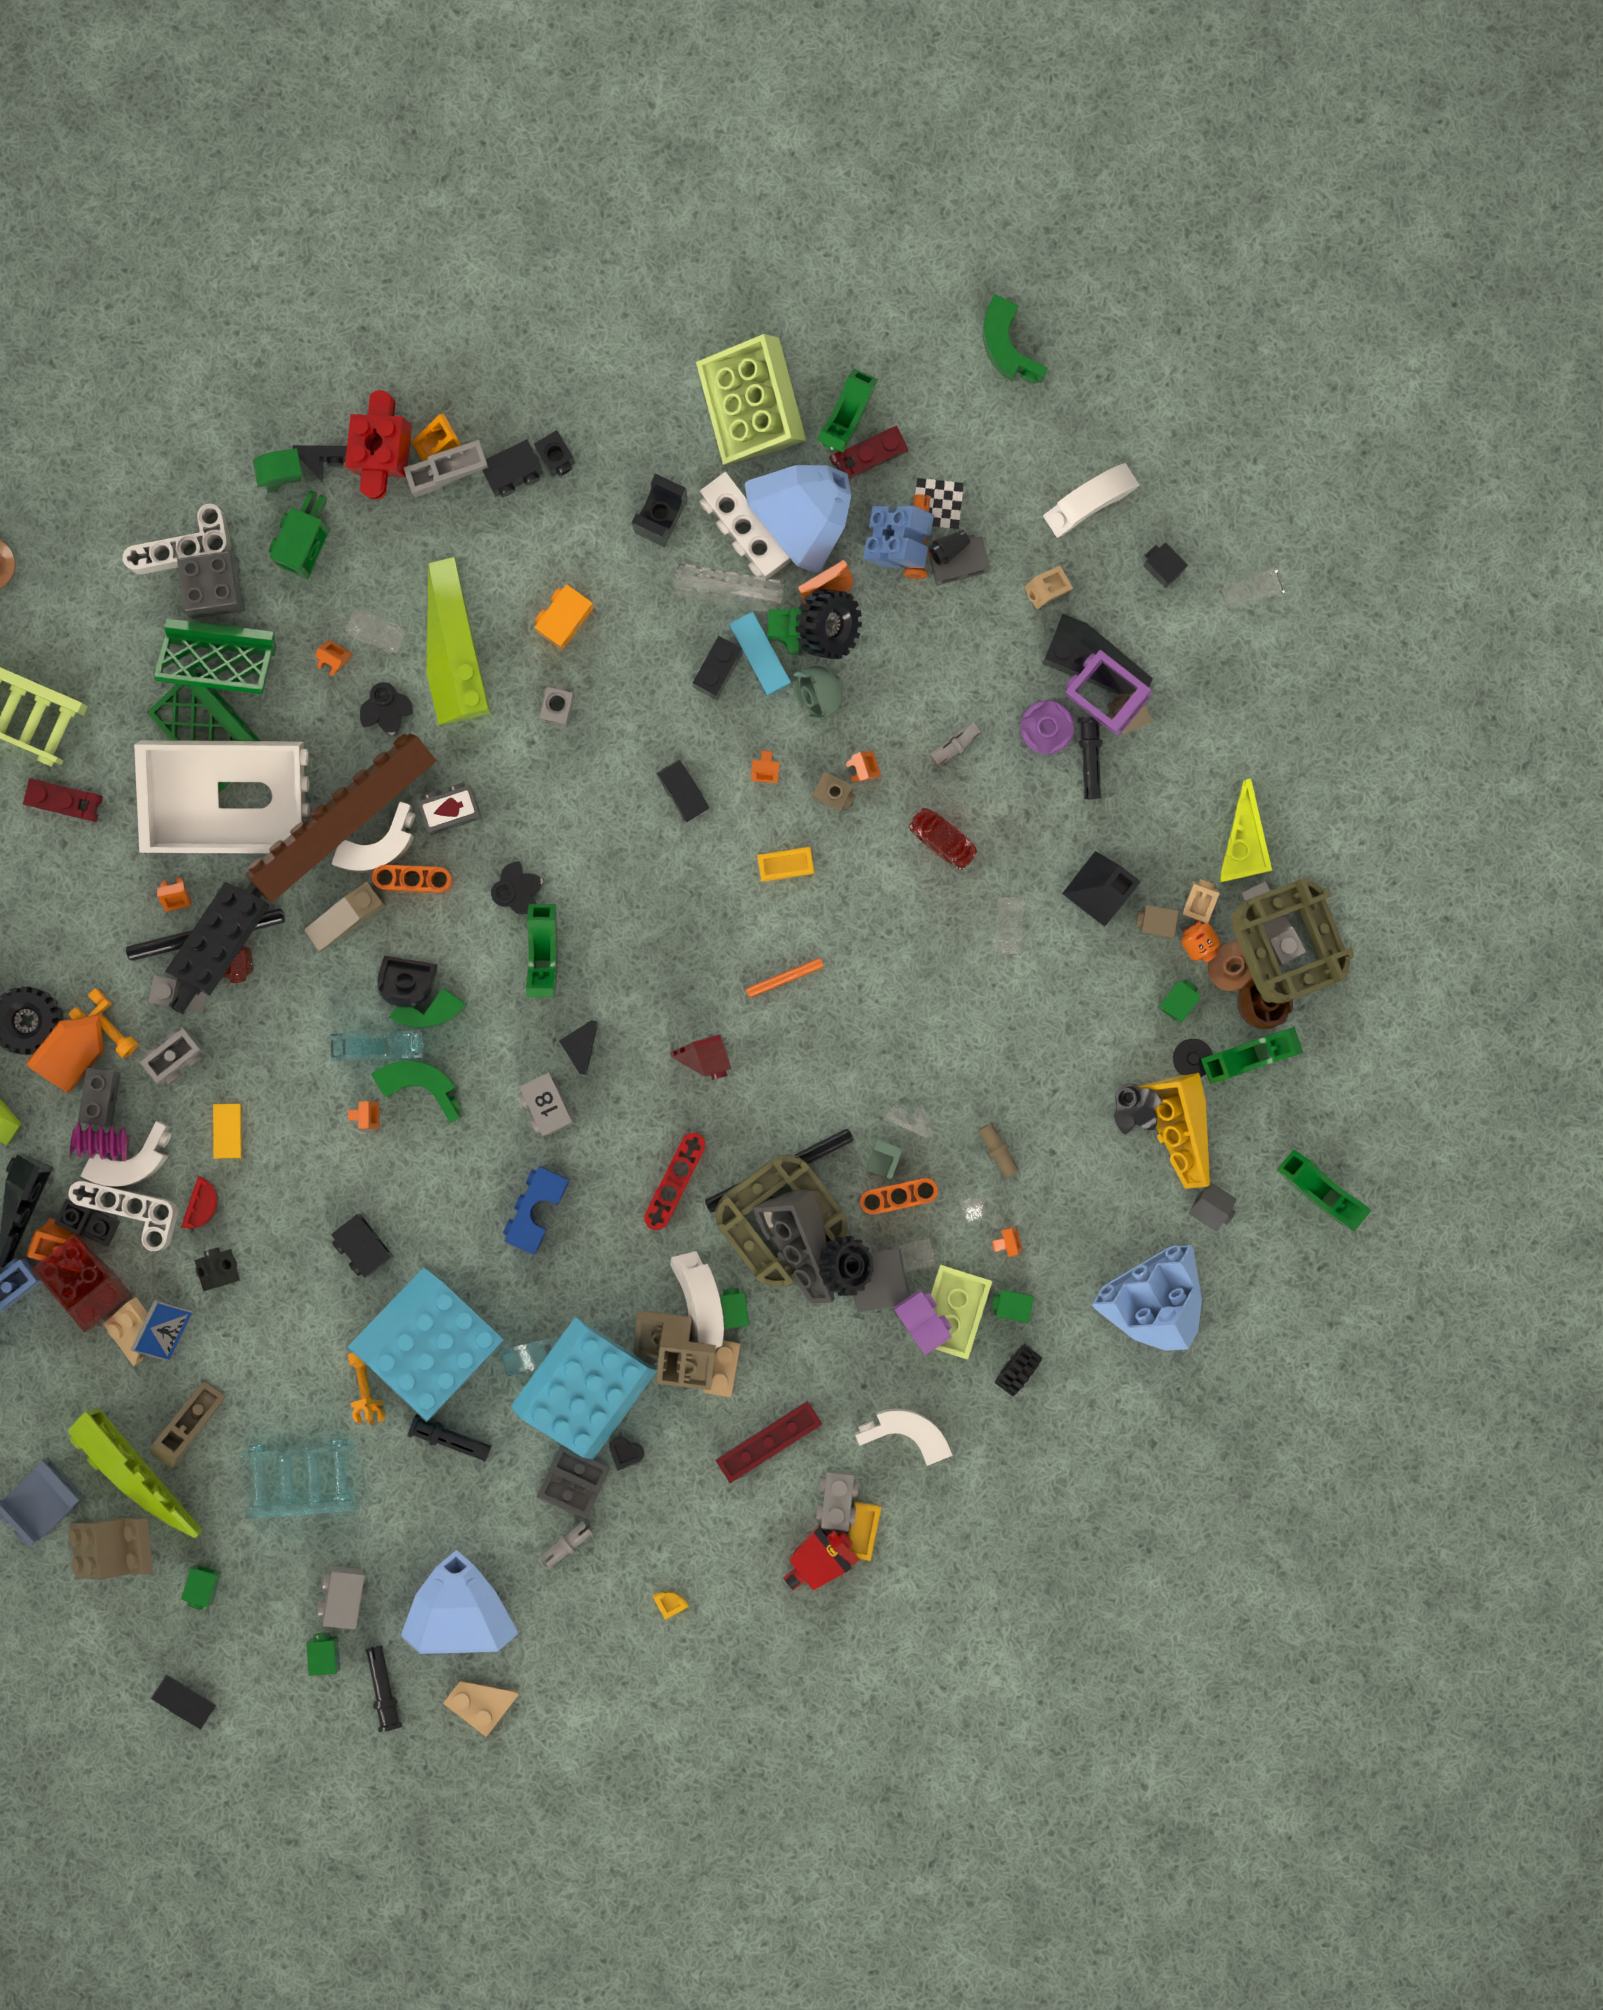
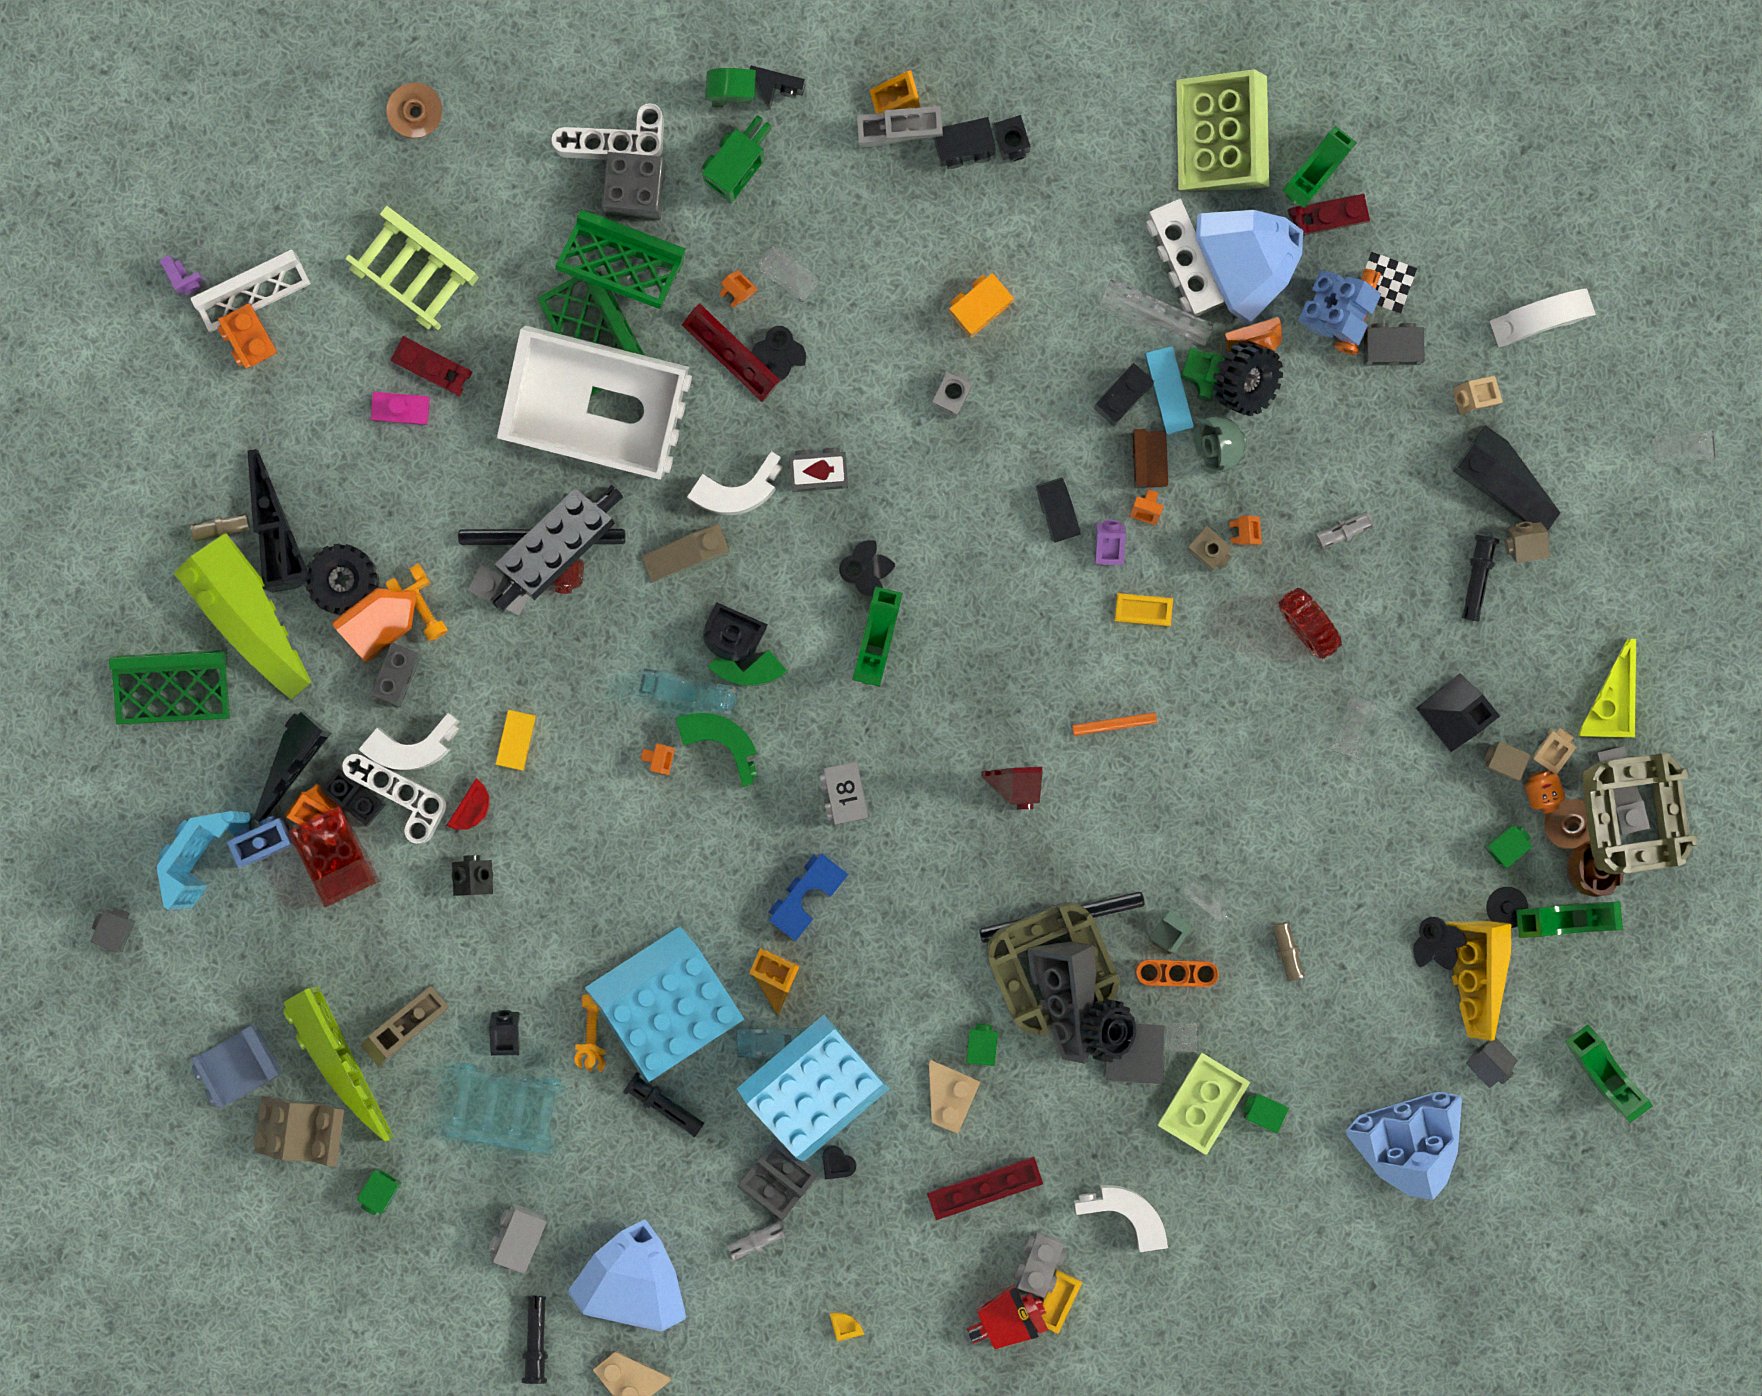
camera: 15 degrees right, 0 degrees up
(43, 847) = (400, 408): none -> dark pink tile
(99, 1141) = (387, 719): magenta piece -> none
(125, 1327) = (370, 916): tan wing -> none
(162, 1330) = (402, 925): piece -> none
(171, 1057) = (480, 651): light grey brick -> none
(173, 896) = (520, 489): orange tile -> none
(183, 1701) = (333, 1303): black slope -> none
(283, 1408) = (504, 1033): none -> black bracket
(323, 1655) = (484, 1291): green brick -> none
(340, 718) = (731, 352): none -> dark red plate
(340, 816) = (708, 452): reddish brown brick -> none
(361, 1246) = (623, 889): black brick -> none
(388, 449) = (836, 86): red brick -> none
(400, 875) = (752, 525): orange beam -> none
(451, 650) = (858, 310): lime wedge -> none
(524, 1293) = (774, 976): none -> light orange slope
(580, 1045) = (891, 741): black slope -> none
(664, 495) = (1113, 207): black piece -> none
(668, 1340) = (916, 1082): dark tan bracket -> none
(671, 1179) = (954, 902): red beam -> none
(701, 1298) = (954, 1031): white arch -> none
(739, 809) = (1110, 543): none -> medium lavender bracket
(757, 721) = (1150, 458): none -> reddish brown panel
(923, 1322) = (1171, 1106): medium lavender brick -> none
(947, 547) = (1387, 330): black cone -> none
(972, 1208) = (1248, 1003): clear slope -> none
(999, 347) = (1488, 141): green arch -> none
(1010, 1242) = (1278, 1046): orange tile -> none
(1018, 1370) = (1255, 1178): black tyre -> none
(1047, 736) = (1433, 534): medium lavender tile -> none
(1131, 707) = (1531, 540): medium lavender window -> none
(1164, 564) = (1601, 400): black brick -> none

